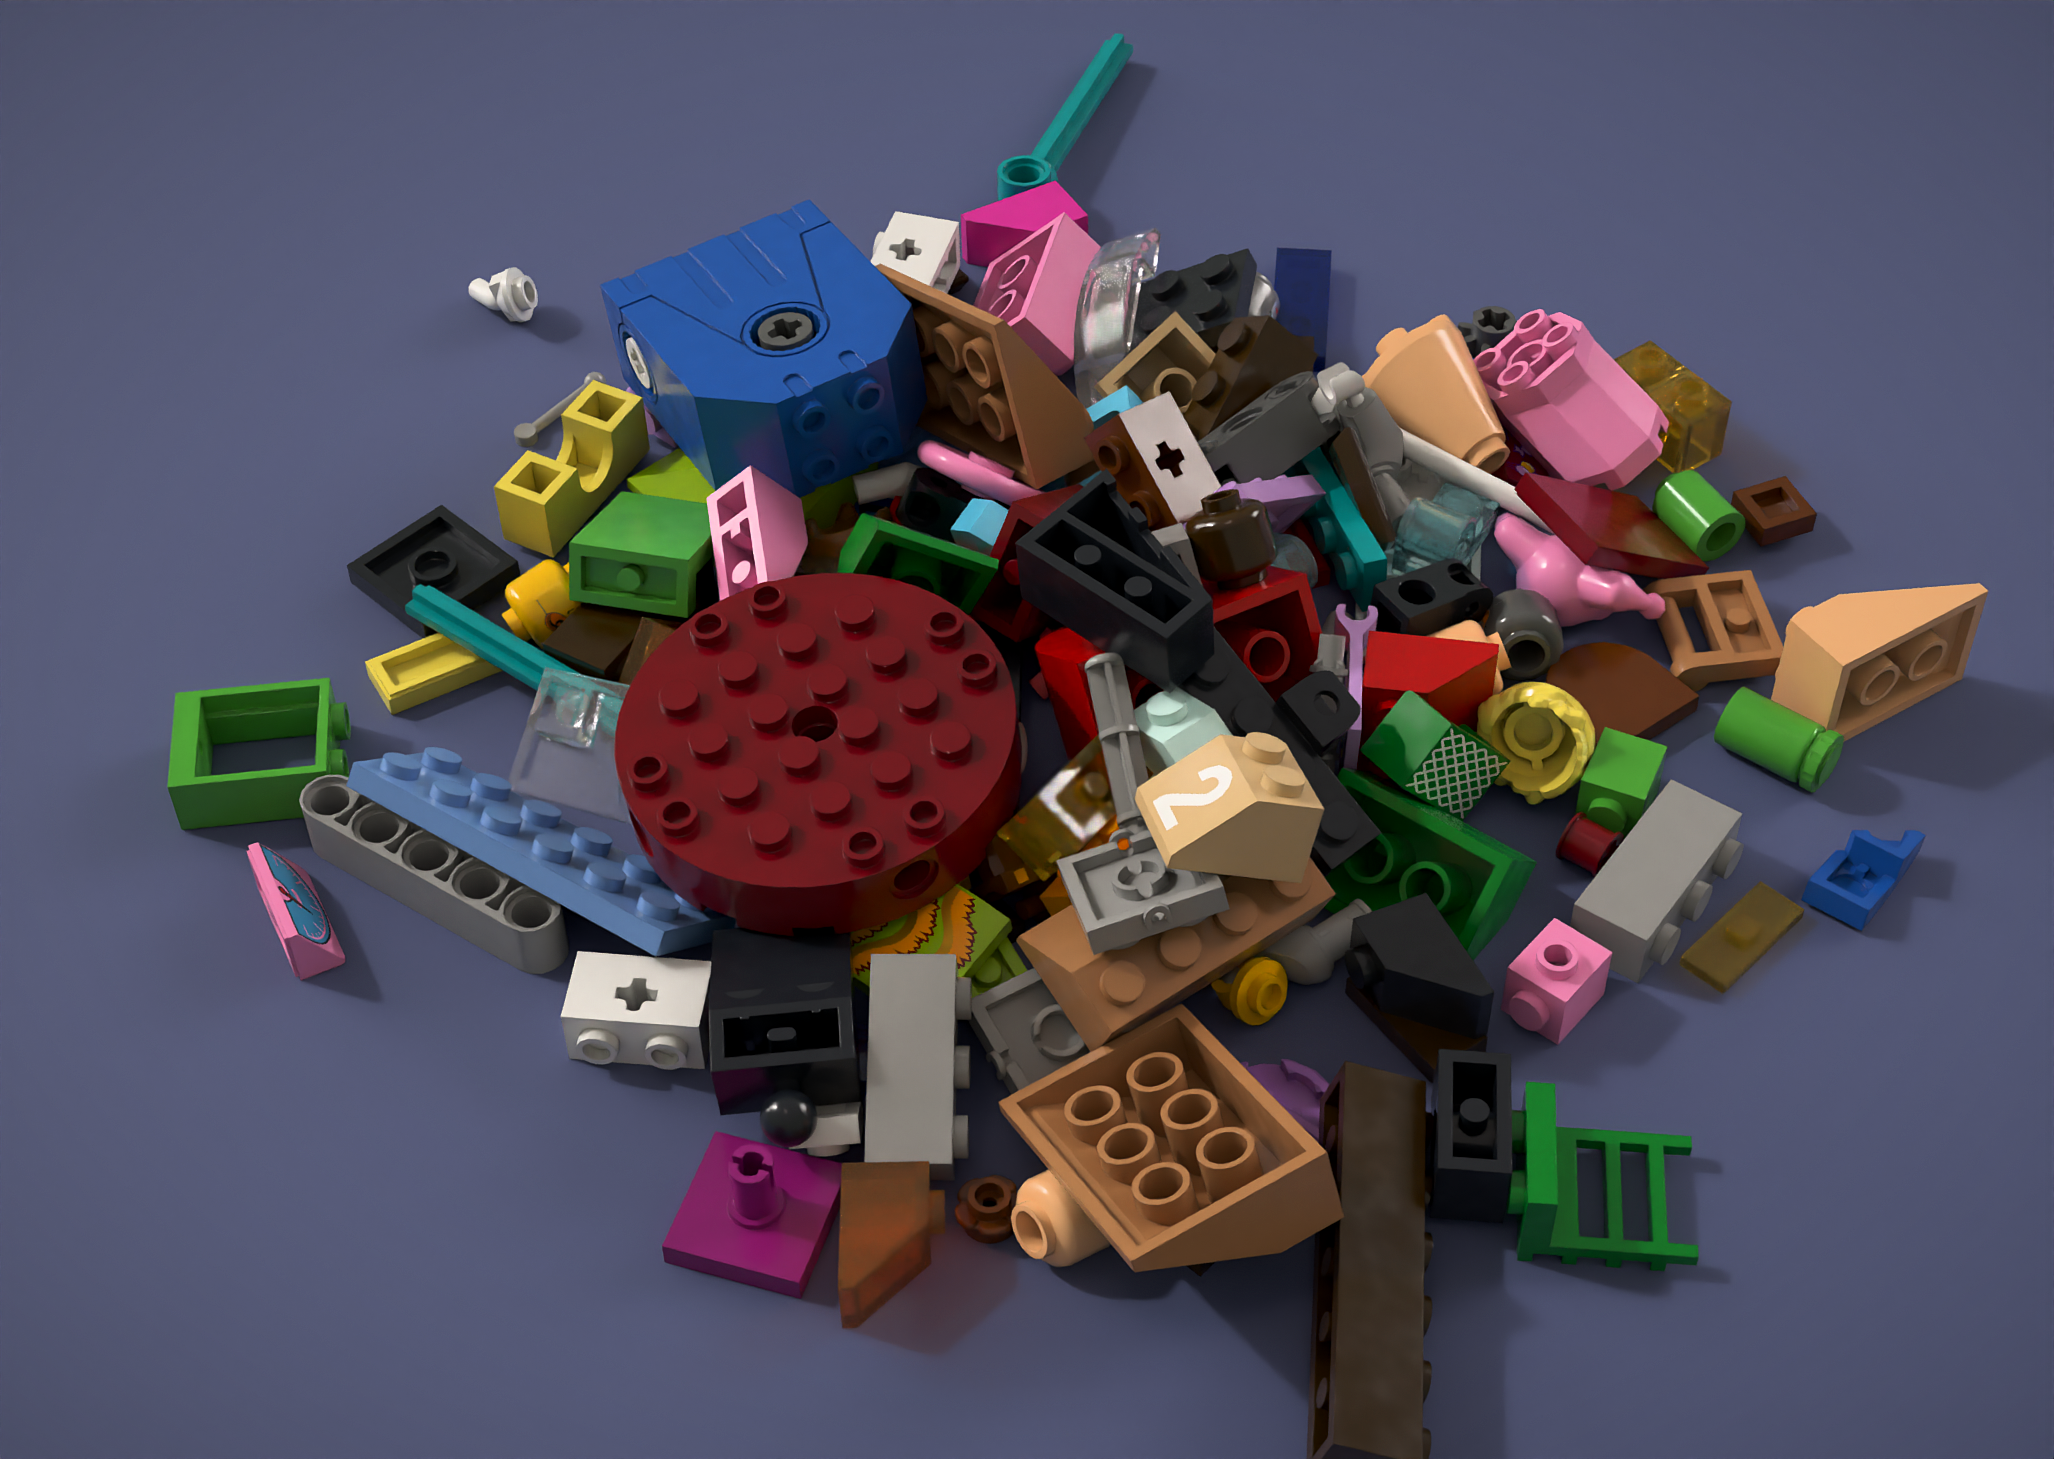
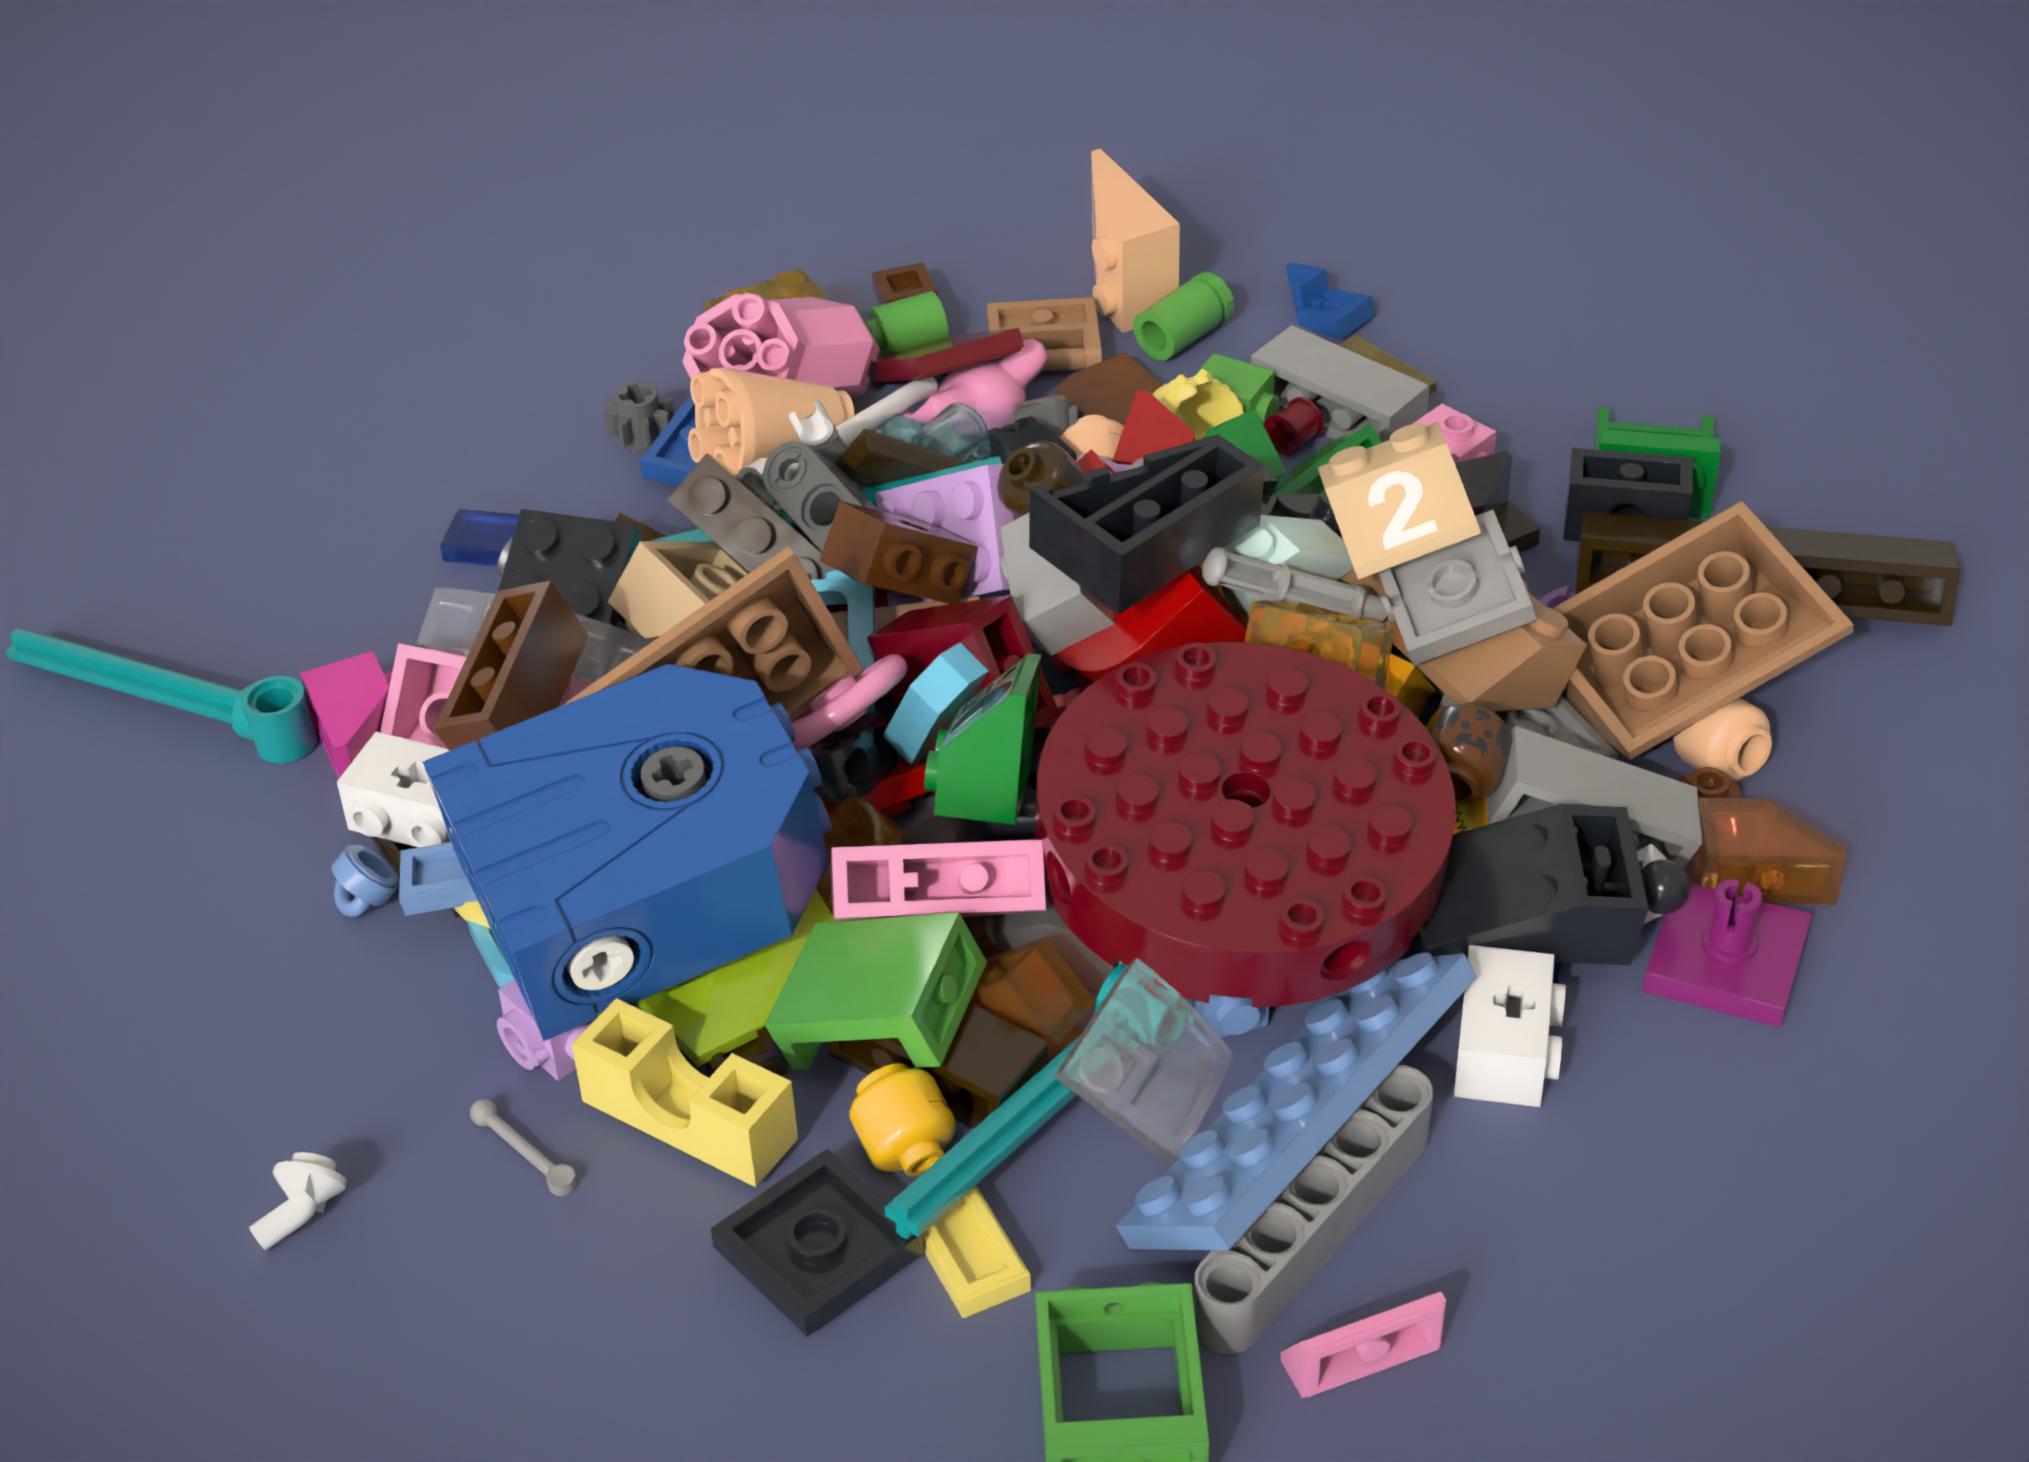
camera: 85 degrees left, 5 degrees down
(934, 920) = (1474, 747): none -> reddish brown head
(980, 259) = (514, 665): none -> reddish brown brick

